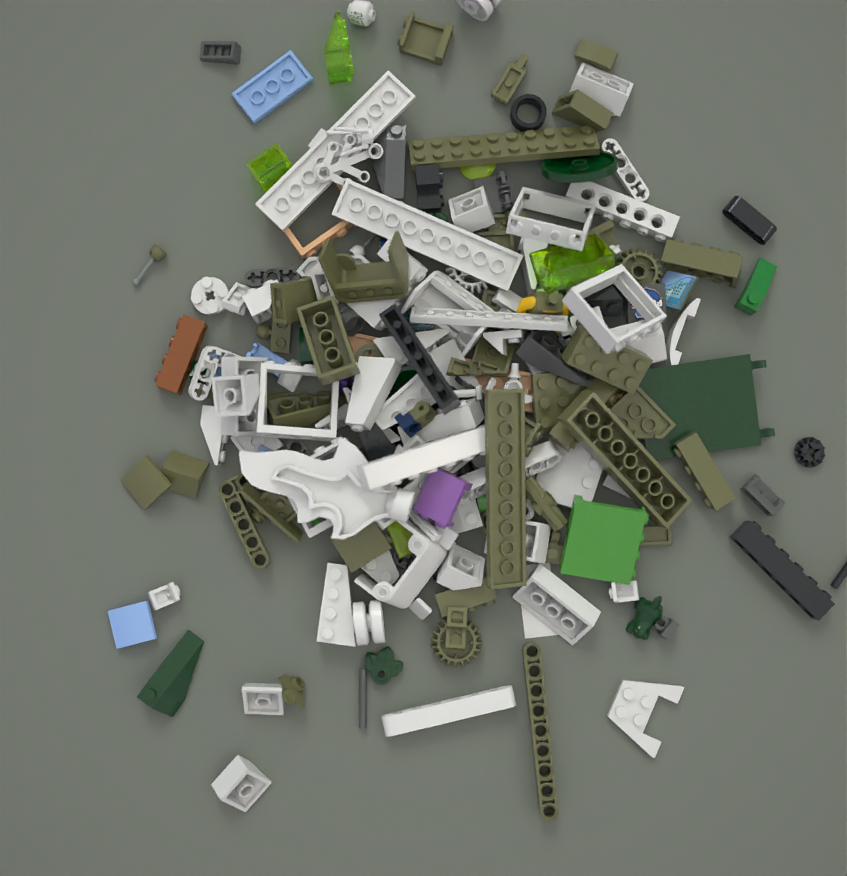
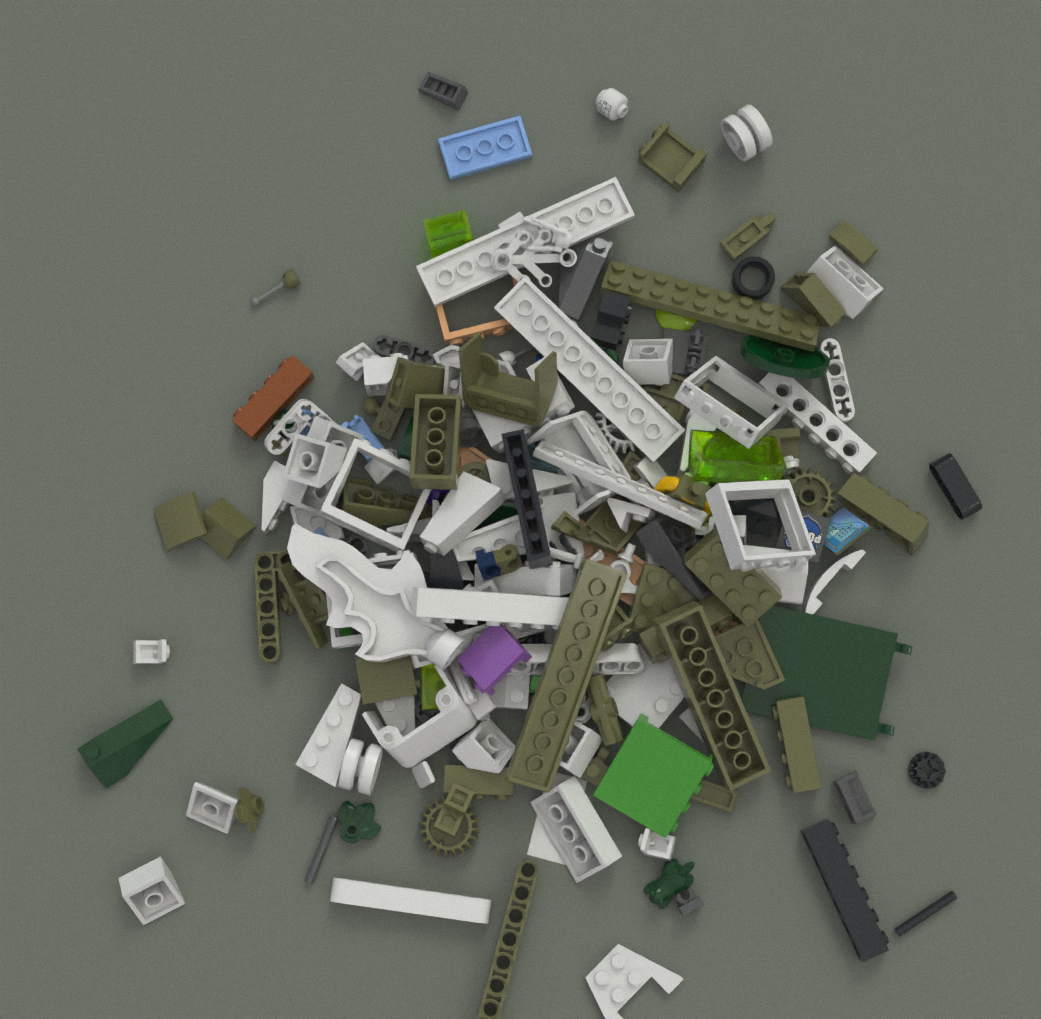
camera: 25 degrees right, 5 degrees down
(132, 624) = (103, 669): light blue slope -> none
(199, 297) = (317, 341): white plate -> none
(337, 52) = (569, 138): clear neon green slope -> none
(756, 287) = (935, 562): green slope -> none

